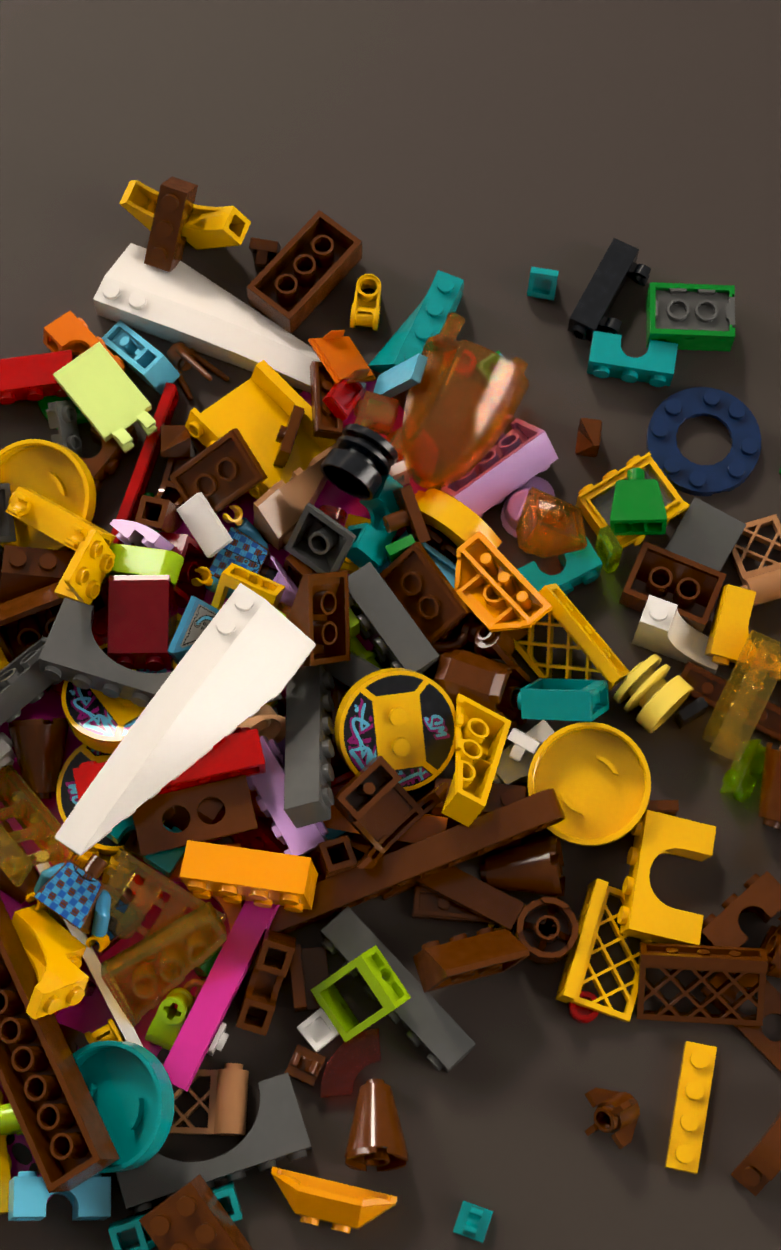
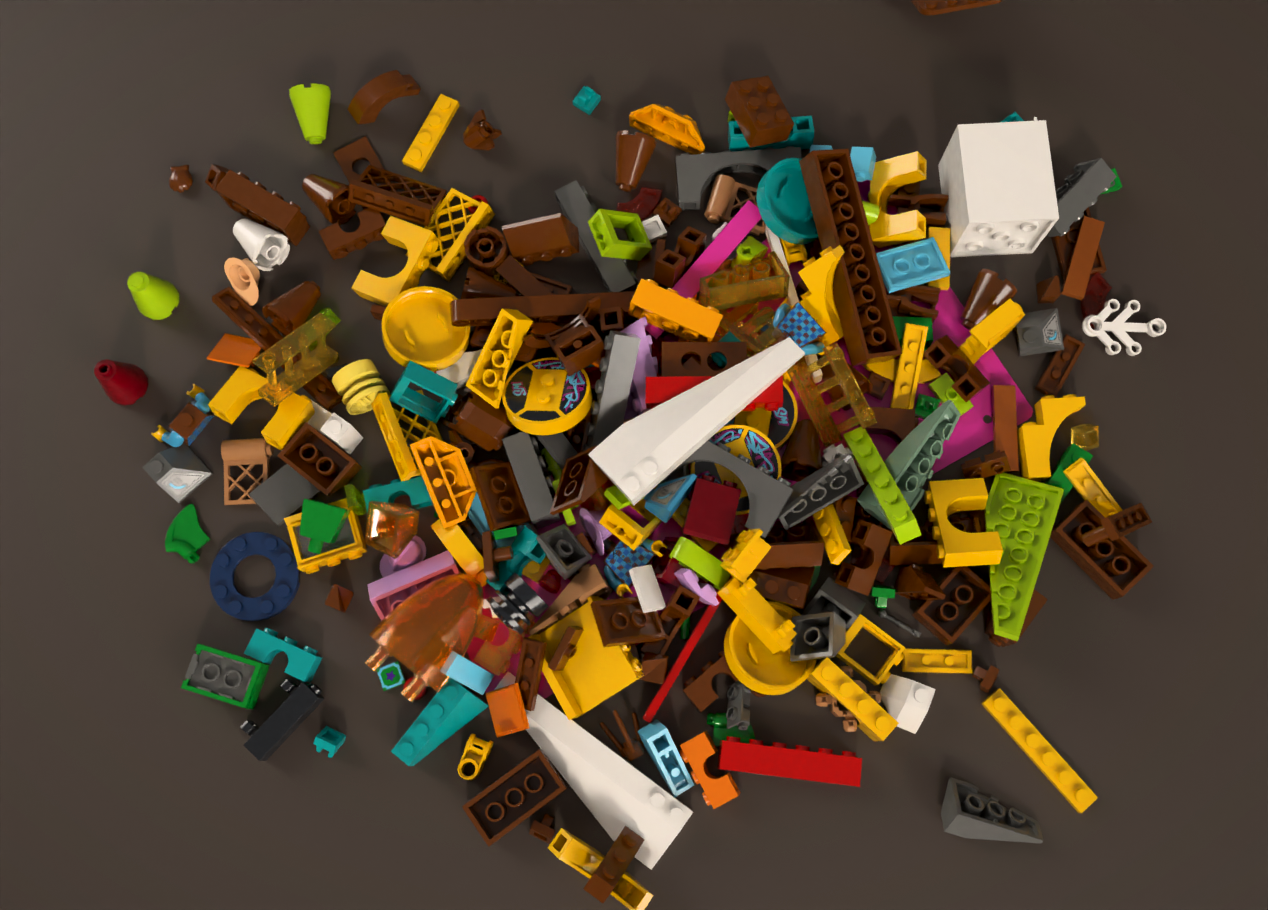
camera: 160 degrees left, 5 degrees up
(106, 395) = (700, 718): yellowish green tile -> none
(343, 398) = (515, 670): red tile -> none
(522, 743) = (462, 367): white tile -> none

